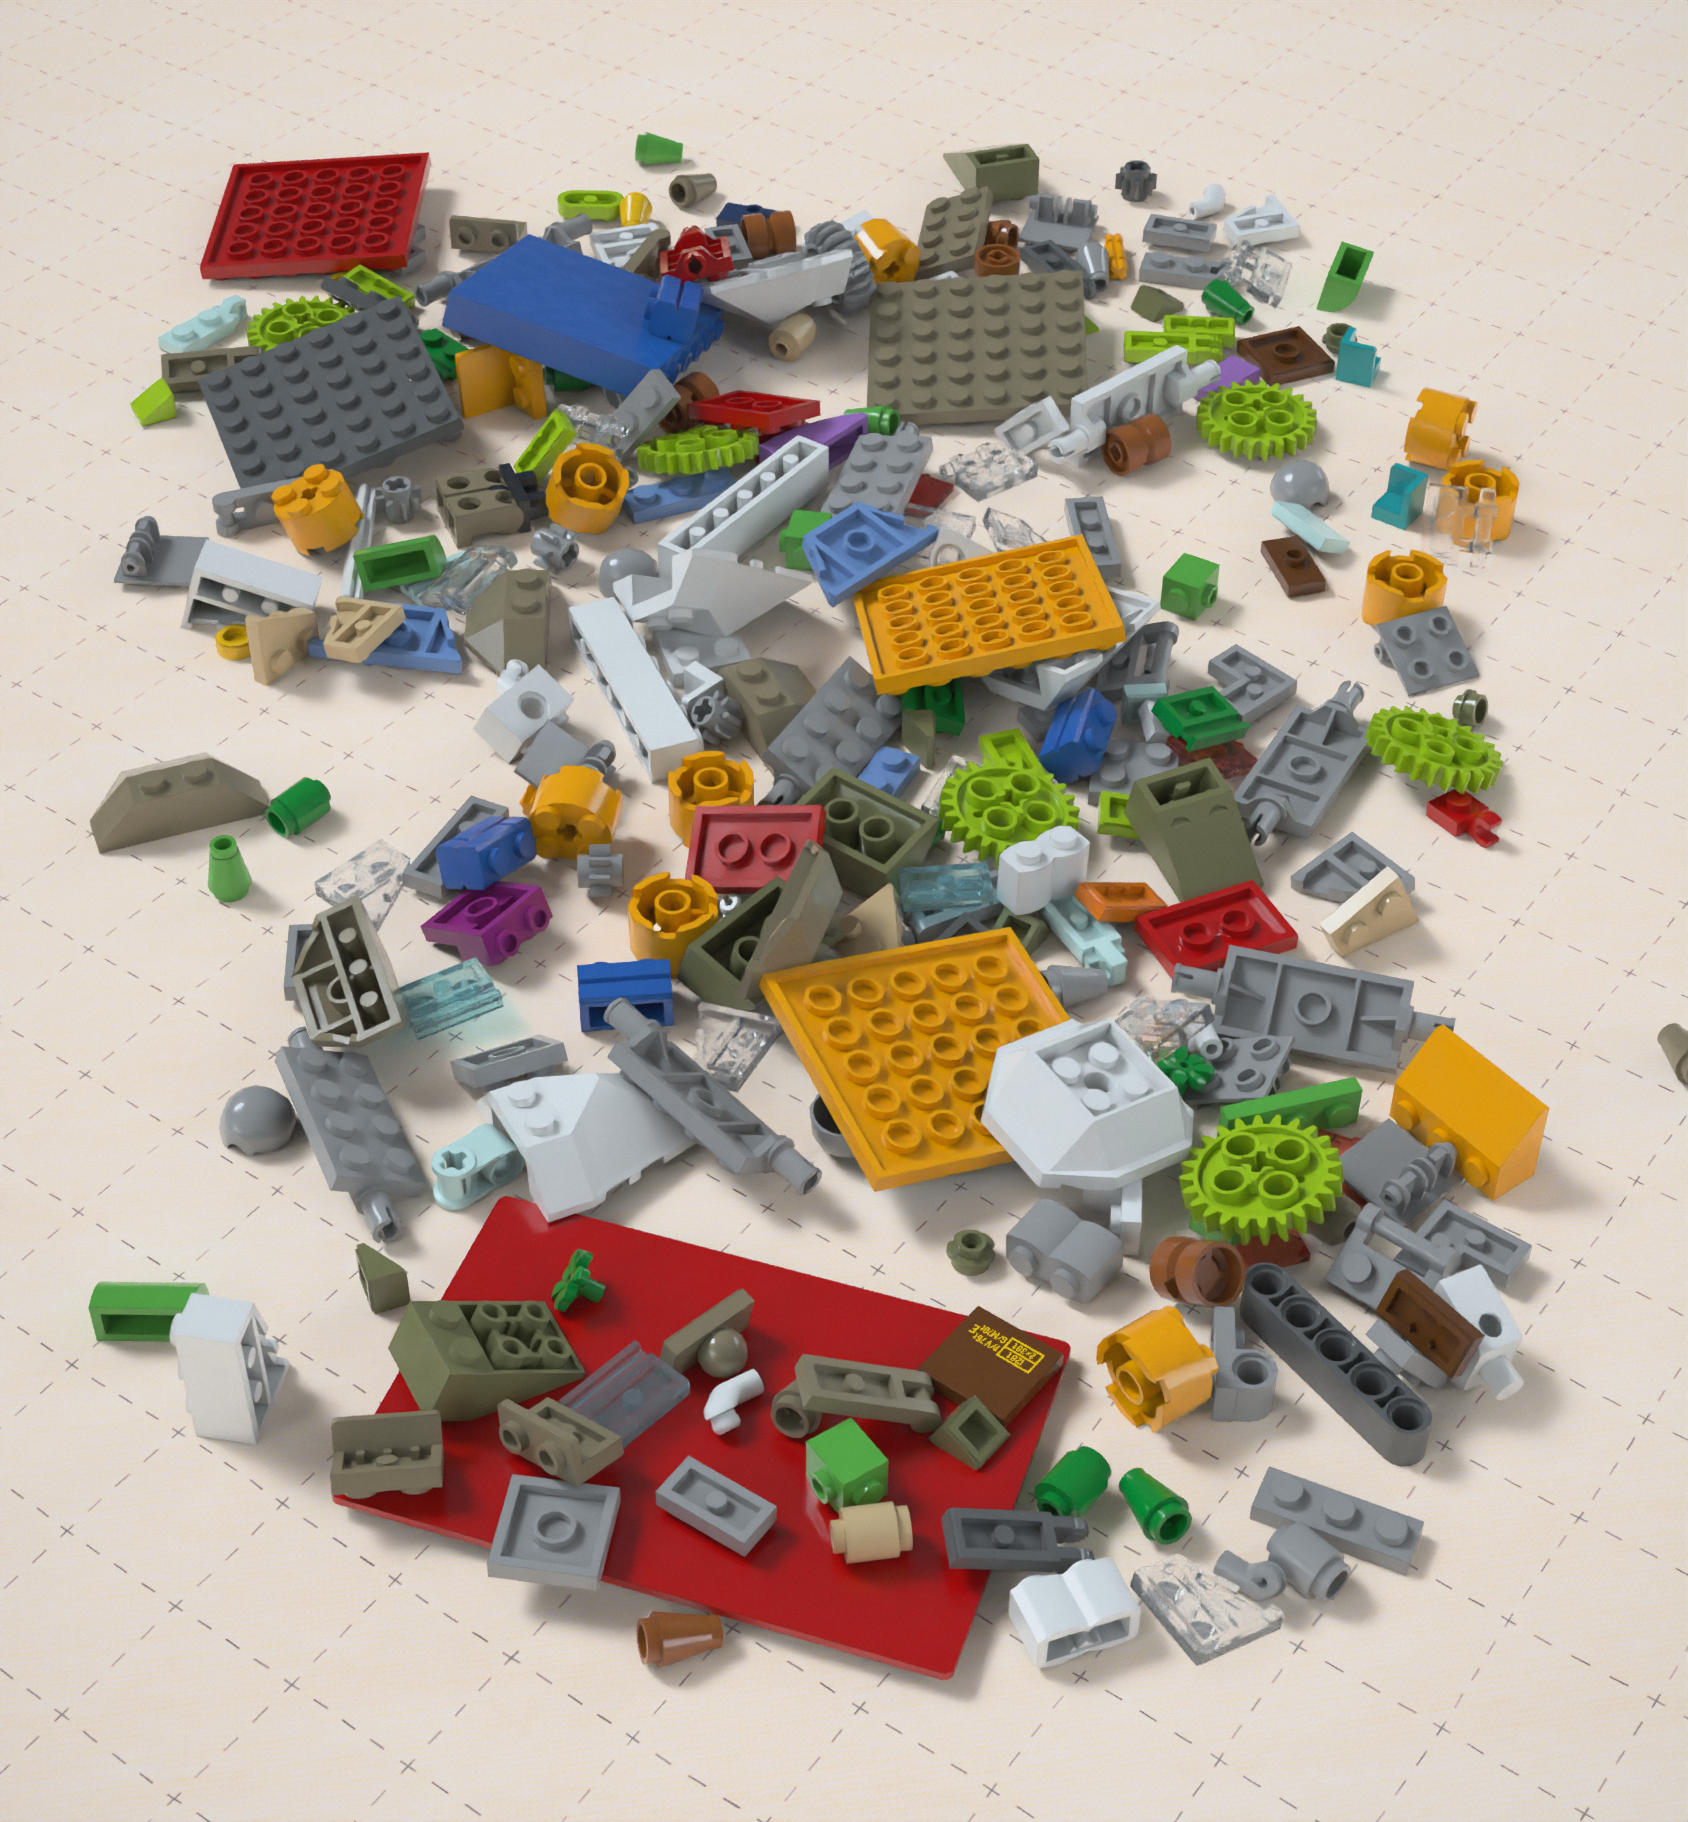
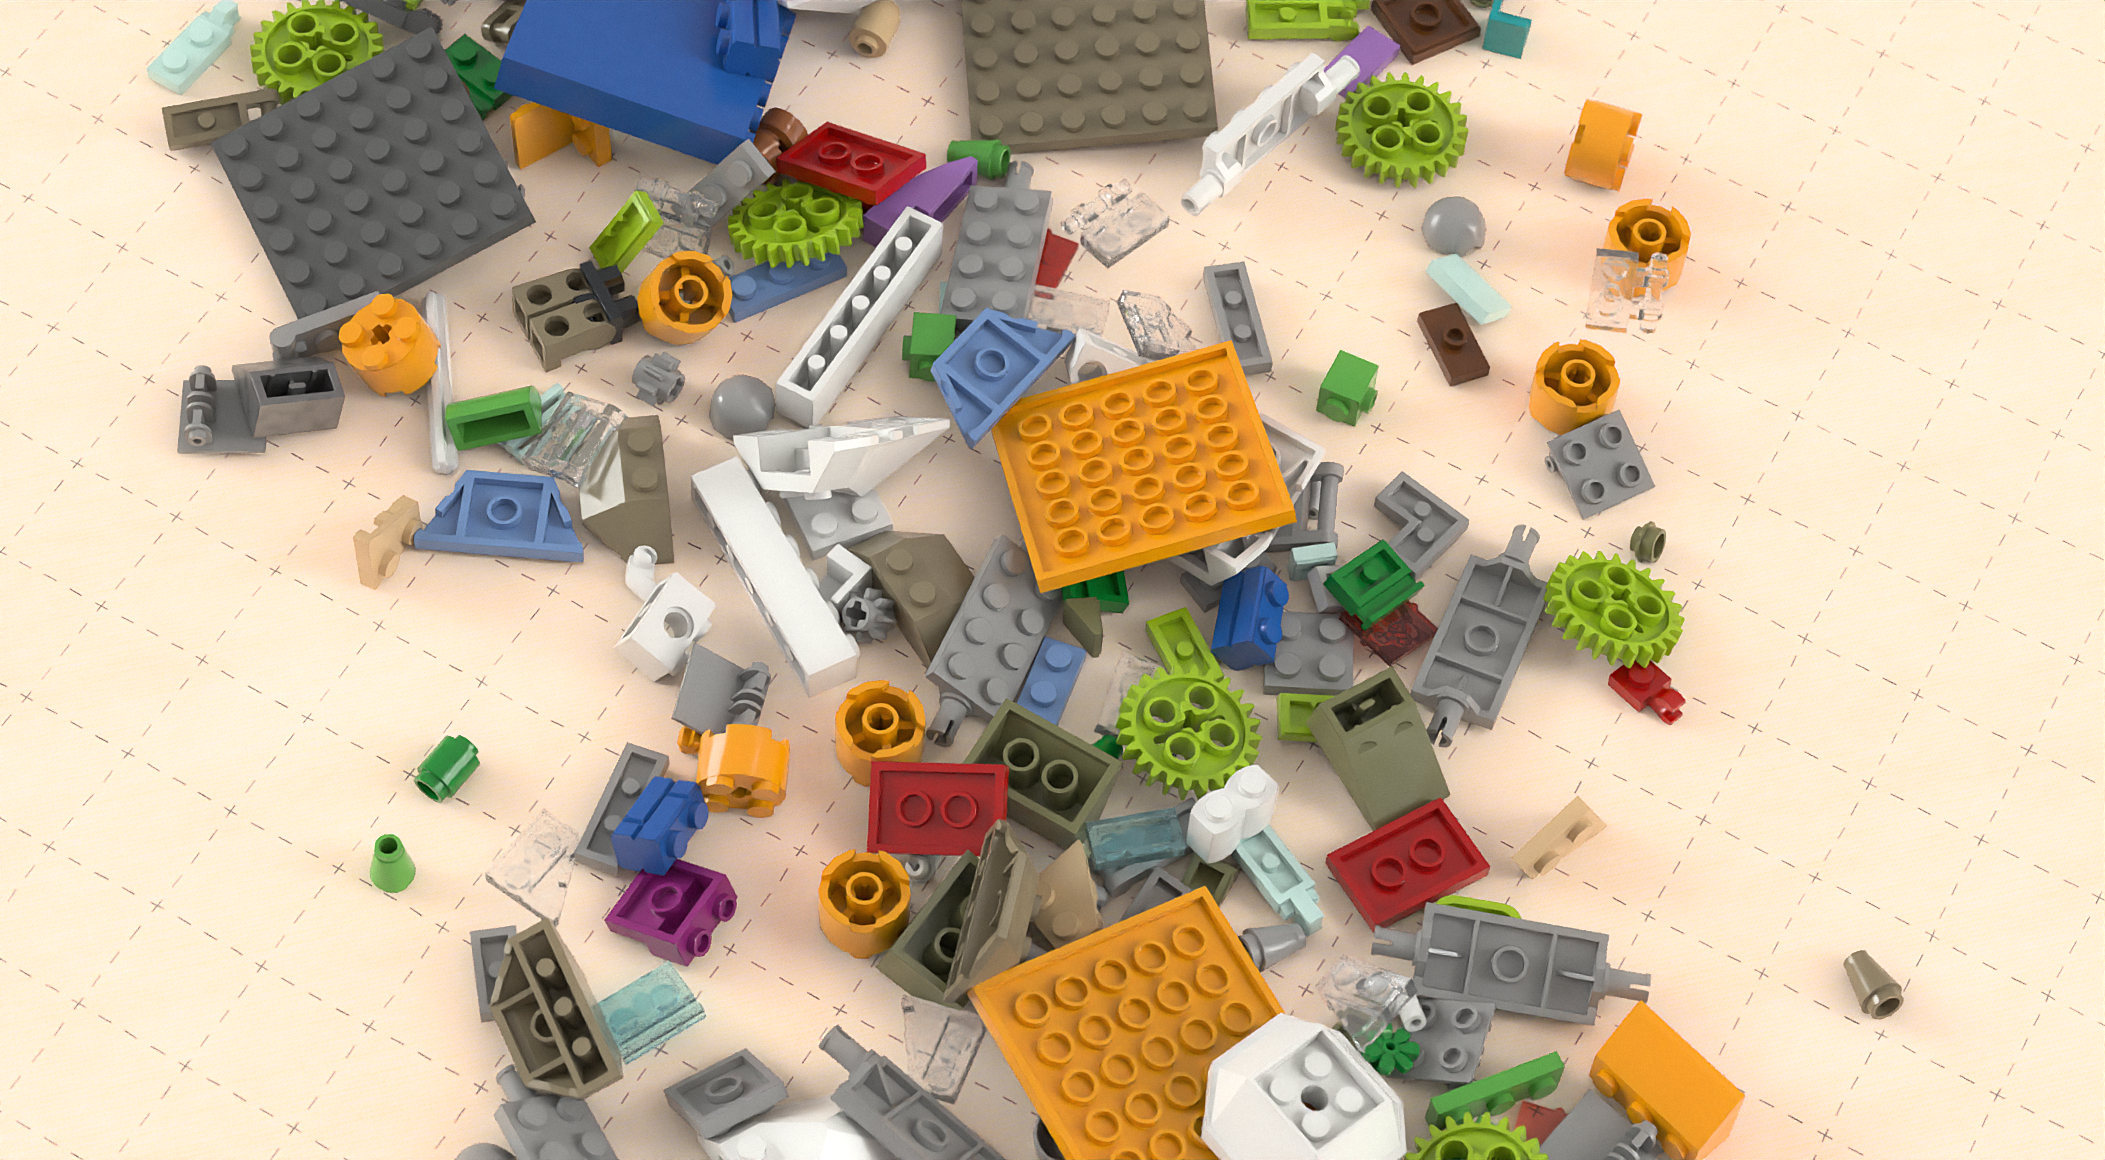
camera: 10 degrees left, 15 degrees up
(154, 404) = (164, 175): lime slope -> none
(174, 800) = (312, 764): dark tan wedge -> none
(231, 528) = (290, 395): none -> flat silver slope
(233, 642) = (330, 532): yellow tile -> none
(236, 584) = (337, 469): white wedge -> none
(360, 628) = (470, 520): tan wing -> none
(398, 500) = (472, 314): light grey gear -> none
(600, 870) = (778, 834): light grey gear -> none
(641, 982) = (826, 993): blue brick -> none
(1033, 426) = (1159, 167): white plate -> none
(1118, 900) = (1310, 835): orange plate -> none
(1136, 444) = (1274, 179): dark orange wheel -> none
(1345, 870) = (1539, 777): light grey wing -> none
(1403, 499) = (1563, 241): teal panel -> none

